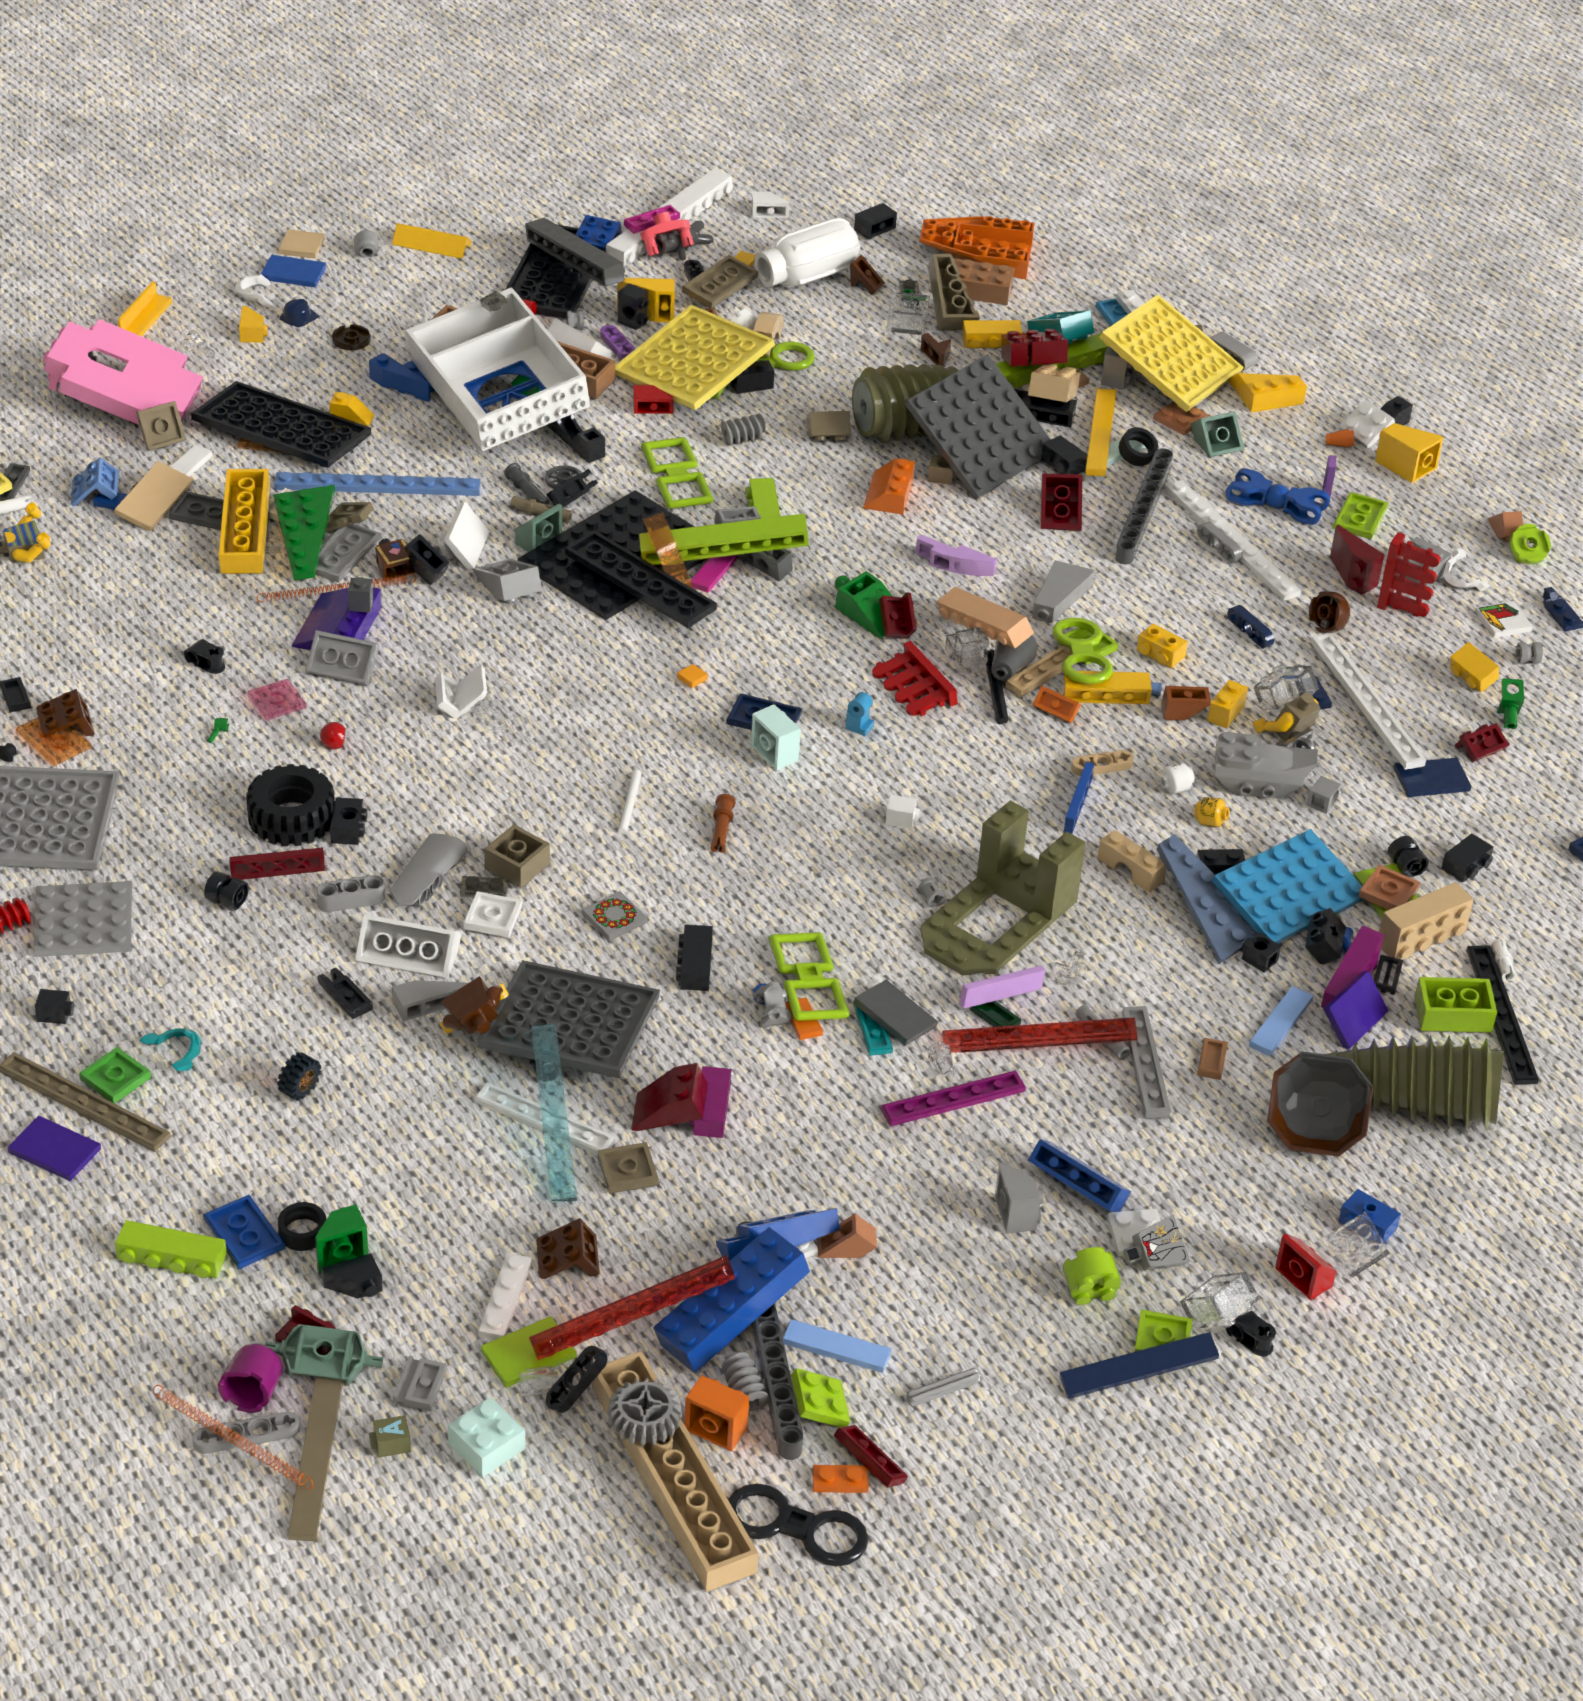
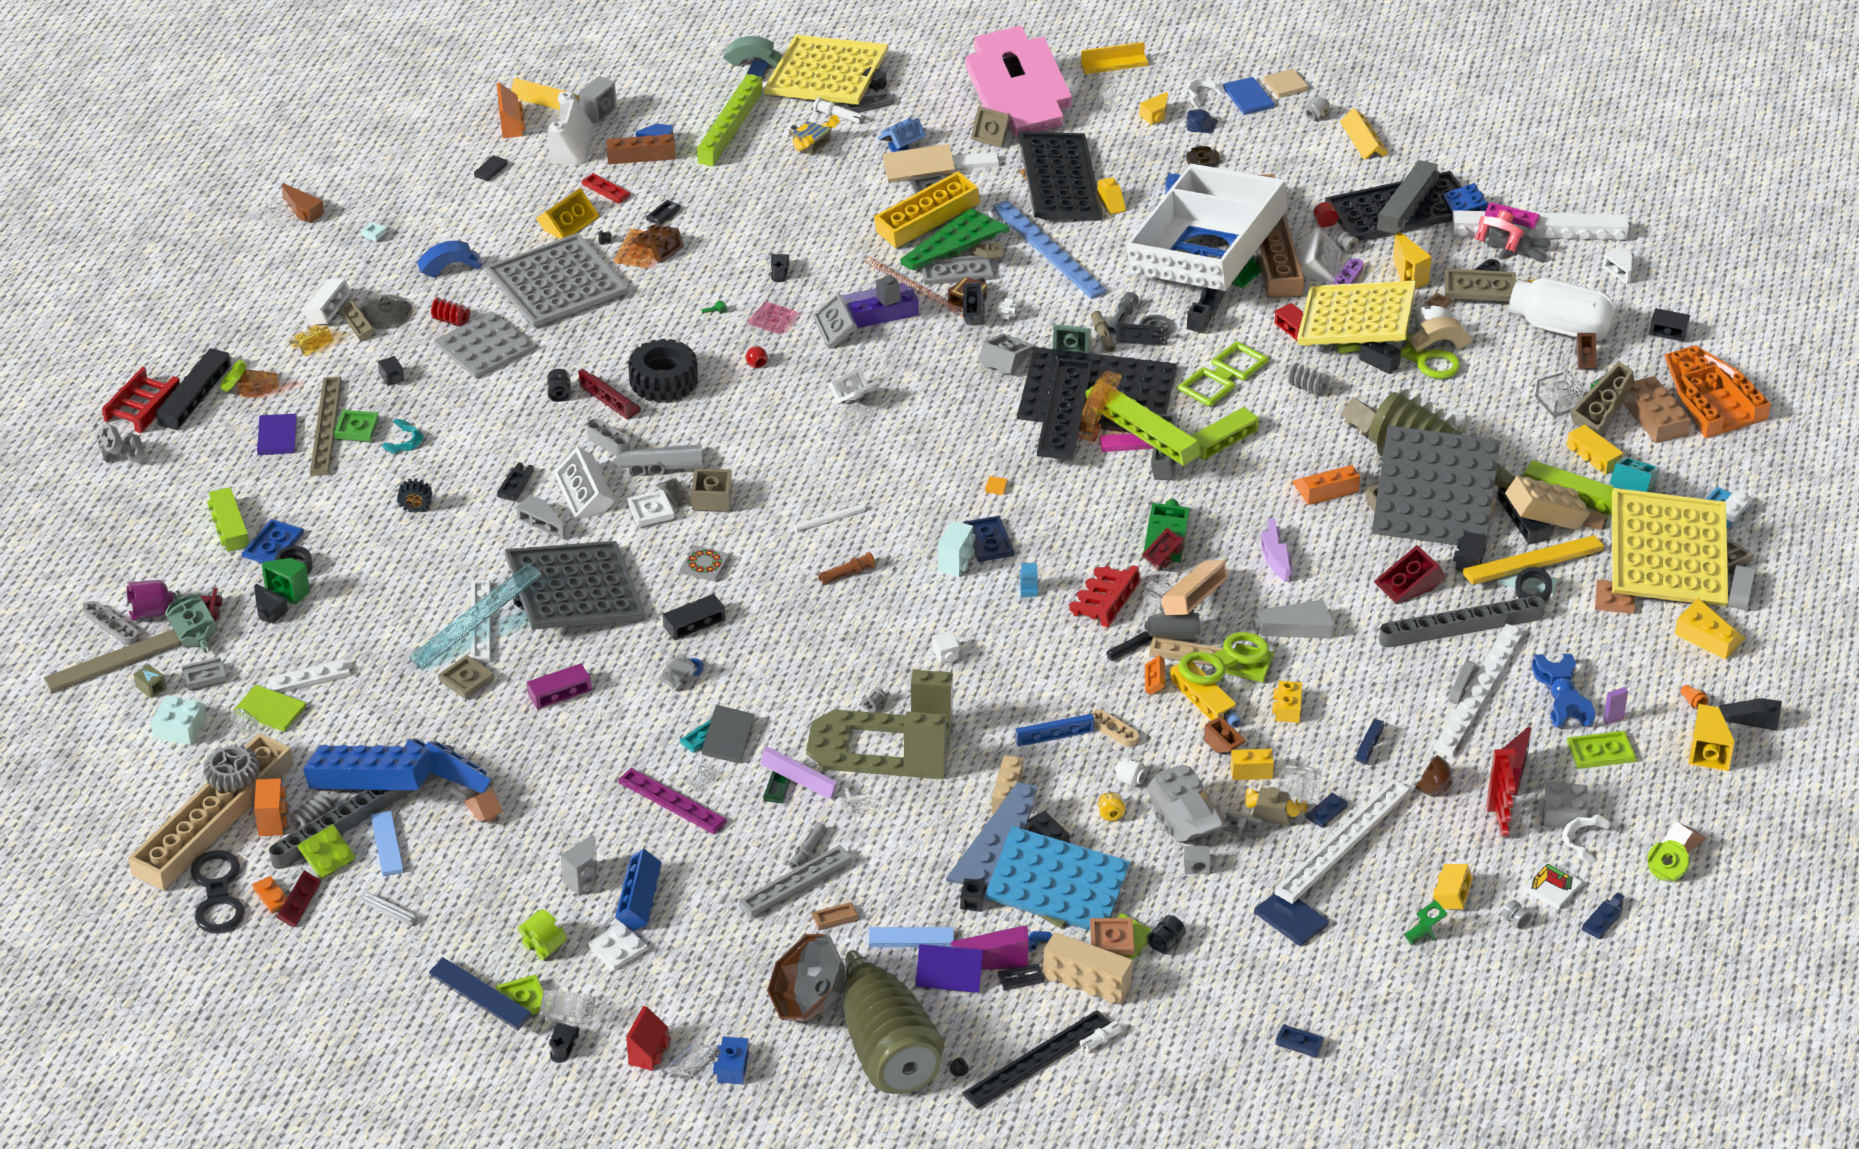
camera: 60 degrees right, 0 degrees up
(190, 1415) = (100, 611): orange piece -> none
(347, 821) = (676, 403): black brick -> none
(466, 536) = (1024, 310): white tile -> none
(472, 1007) = (533, 530): reddish brown torso -> none
(493, 301) = (1254, 179): clear smoke plate -> none
(566, 1380) = (248, 732): black beam -> none
(568, 1247) = (369, 685): reddish brown bracket -> none
(632, 306) = (1388, 258): black brick -> none
(632, 1307) = (318, 723): clear red plate -> none
(671, 1099) = (537, 664): dark red slope -> none
(734, 514) = (1167, 410): light grey slope -> none
(808, 976) = (726, 677): lime bar -> none
(808, 1028) = (685, 694): orange tile -> none
(936, 351) = (1536, 431): reddish brown slope -> none
(1041, 1035) = (769, 814): clear red tile -> none
(1042, 347) = (1574, 470): dark red piece -> none
(1158, 1246) = (601, 956): light grey torso -> none
(1218, 434) = (1608, 625): sand green slope -> none
(1325, 936) = (1031, 916): black brick -> none
(1367, 423) = (1731, 700): white plate -> none
(1455, 1004) = (1009, 1022): lime brick -> none
(1467, 858) = (1202, 970): black brick -> none
(1483, 742) = (1363, 928): dark red bracket -> none

